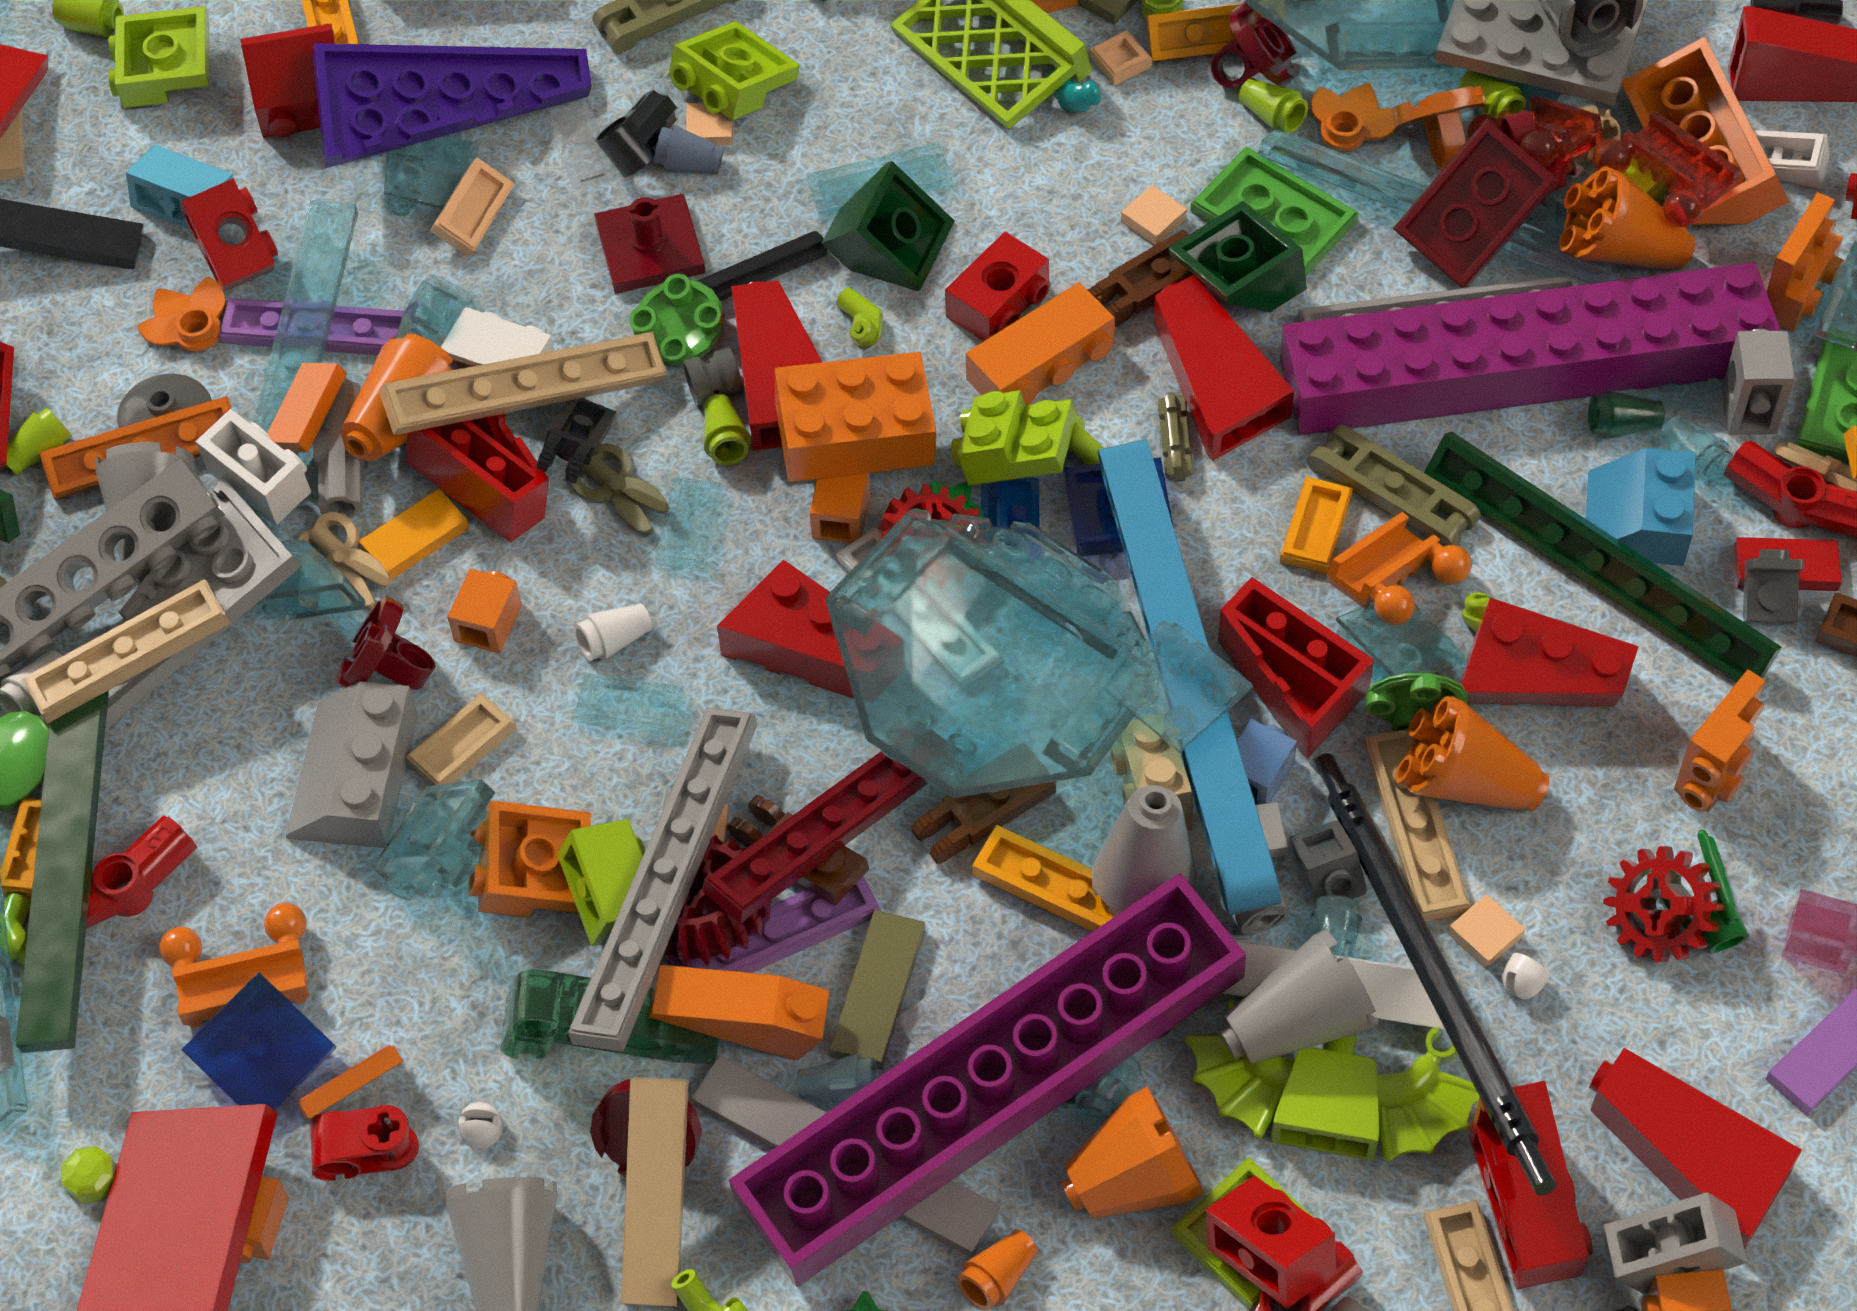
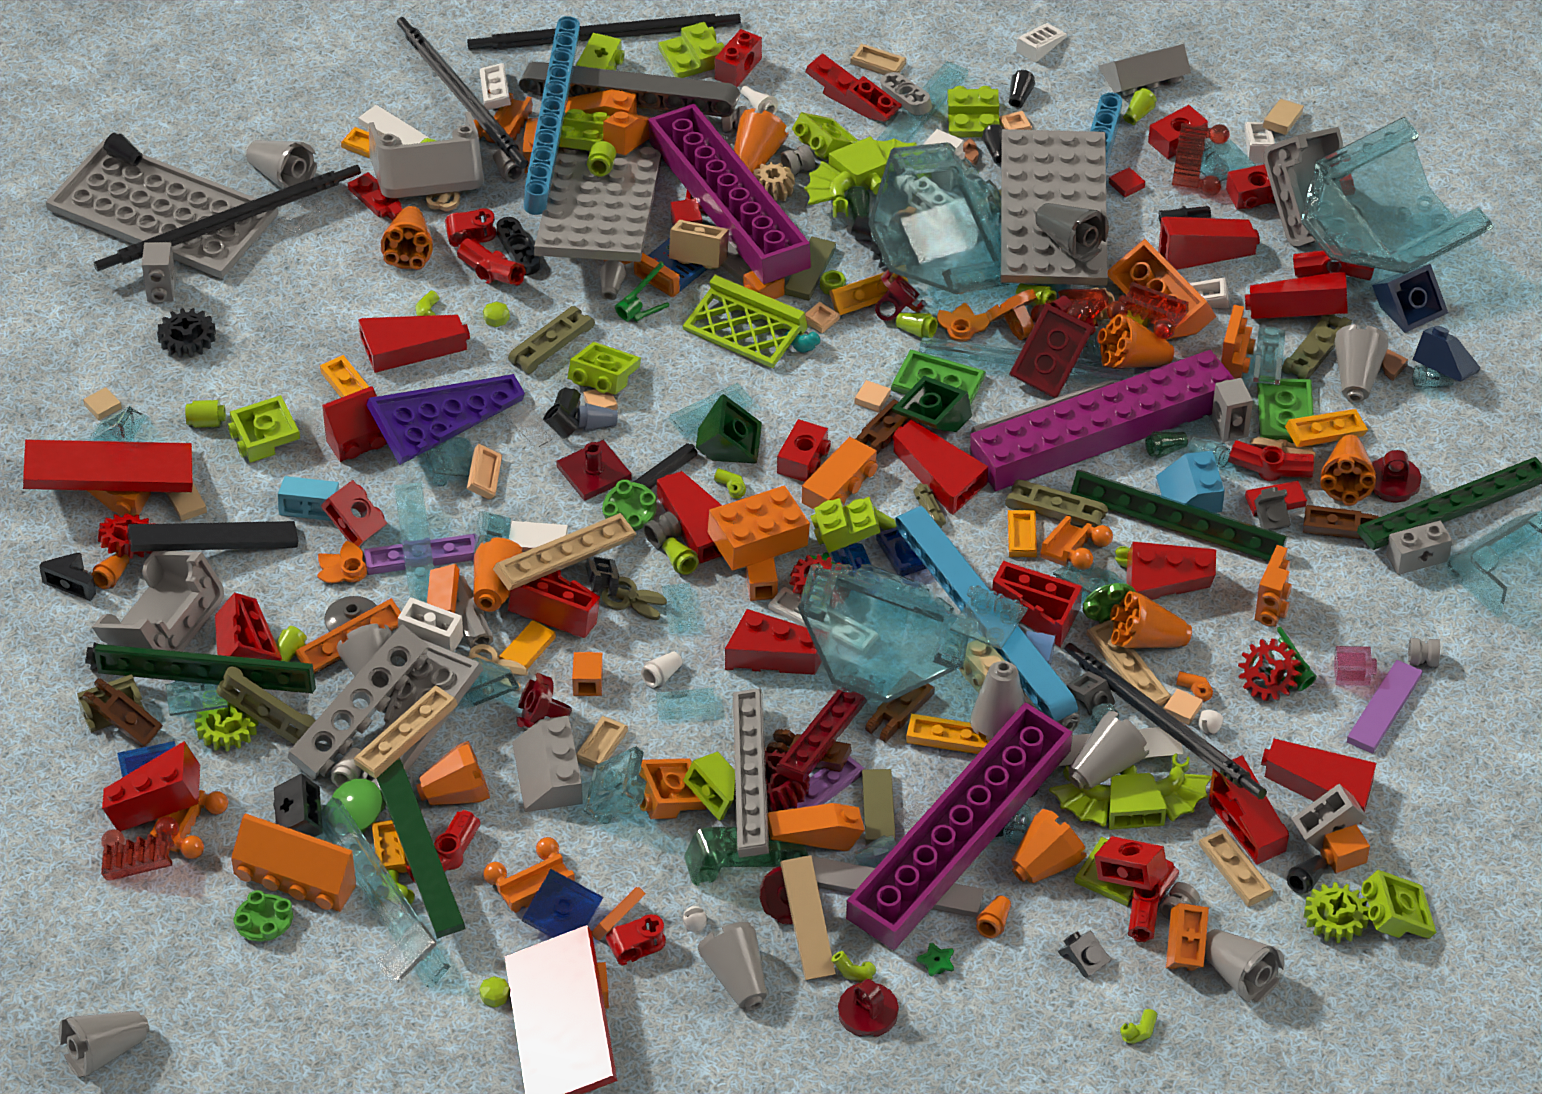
camera: 20 degrees left, 10 degrees down
(185, 748) = (454, 779): none -> orange cone
(1528, 895) = (1197, 684): none -> orange arm

